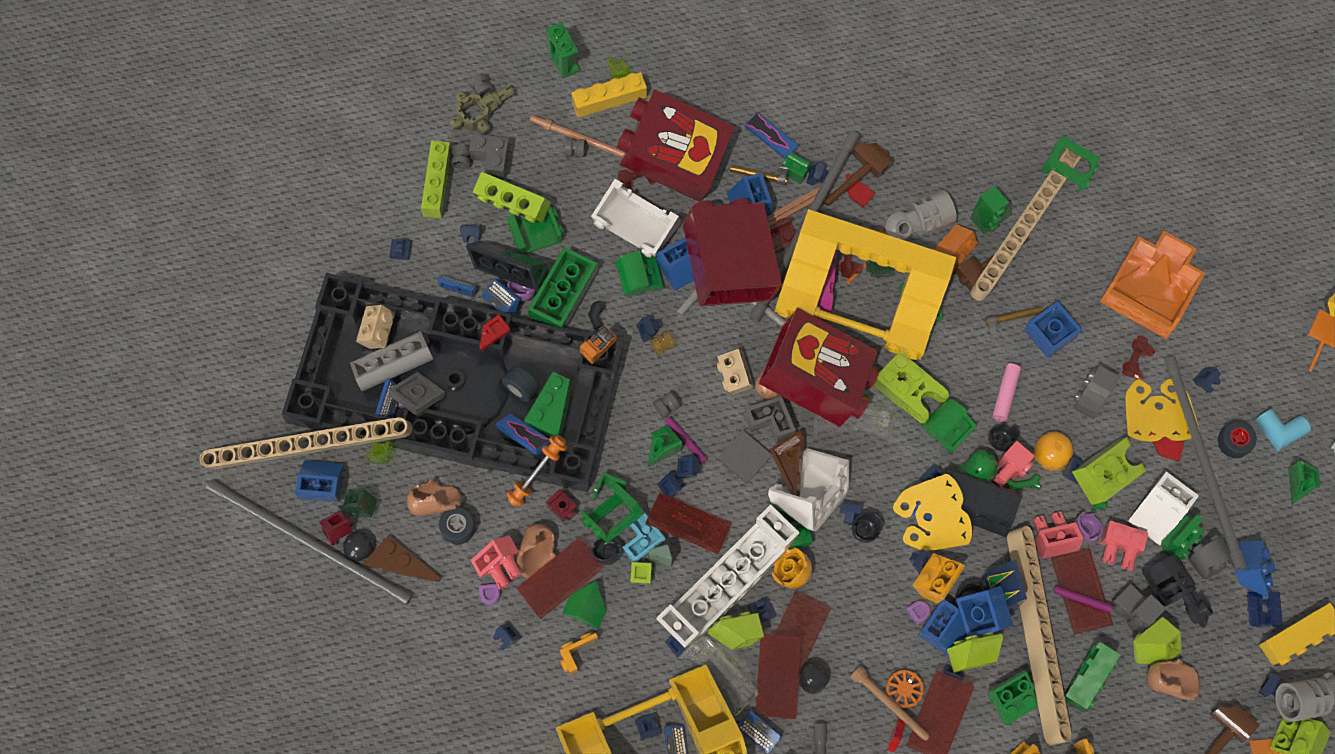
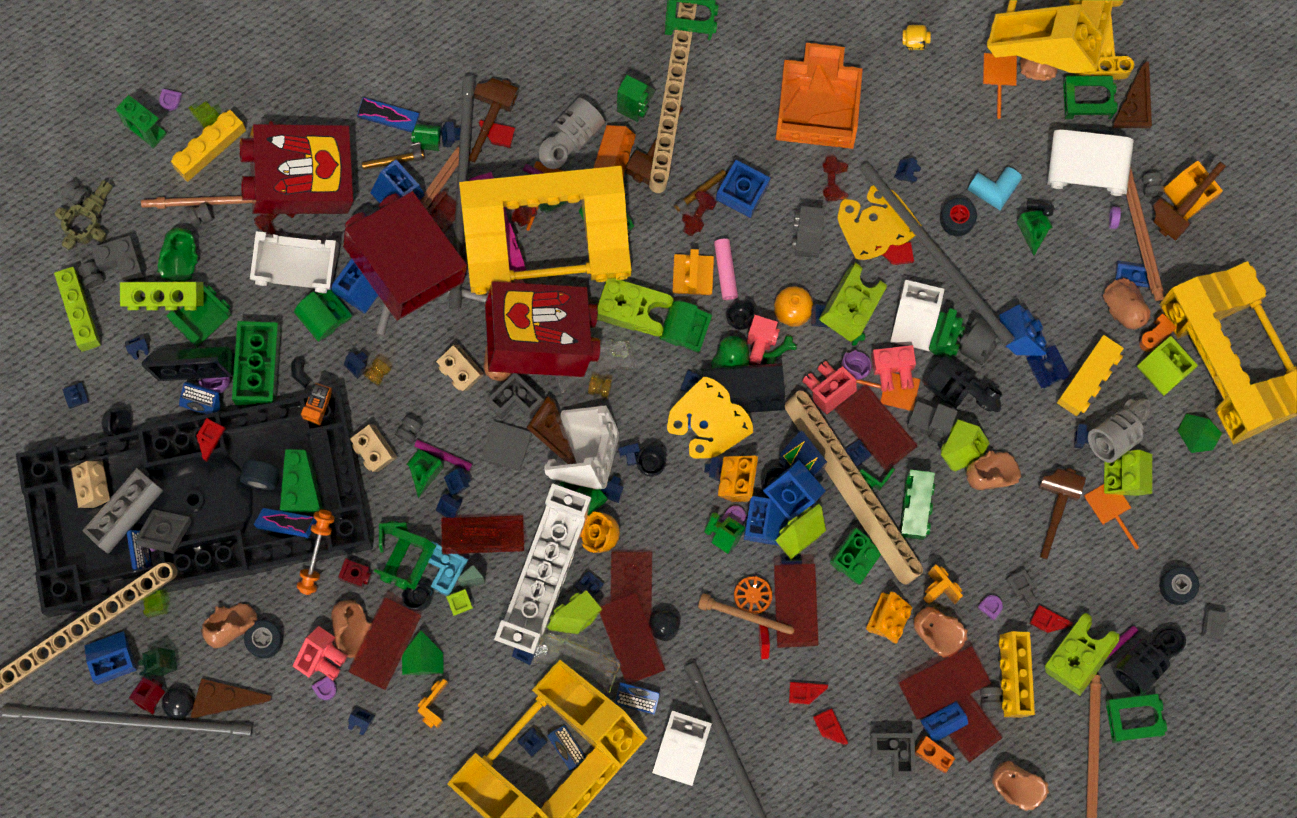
camera: 25 degrees left, 5 degrees up
(423, 285) = (116, 421): none -> black hair
(457, 285) = (150, 405): blue slope -> none
(539, 179) = (179, 263): none -> green piece
(595, 45) = (170, 99): none -> medium lavender tile
(628, 406) = (373, 448): none -> tan brick
(821, 537) = (613, 490): none -> dark blue tile
(845, 441) = (595, 383): none -> clear yellow wheel
(905, 622) = (727, 533): none -> green brick
(975, 383) = (693, 274): none -> light orange bracket
(995, 341) = (695, 224): none -> clear red piece
(1056, 606) = (858, 453): none -> dark blue tile
(1059, 639) = (872, 482): none -> green bracket
(1083, 599) = (880, 435): magenta bar -> none
(1114, 573) = (898, 397): none -> orange piece
(1264, 268) = (916, 37): none -> yellow head
(1322, 467) = (1041, 205): none -> black arm

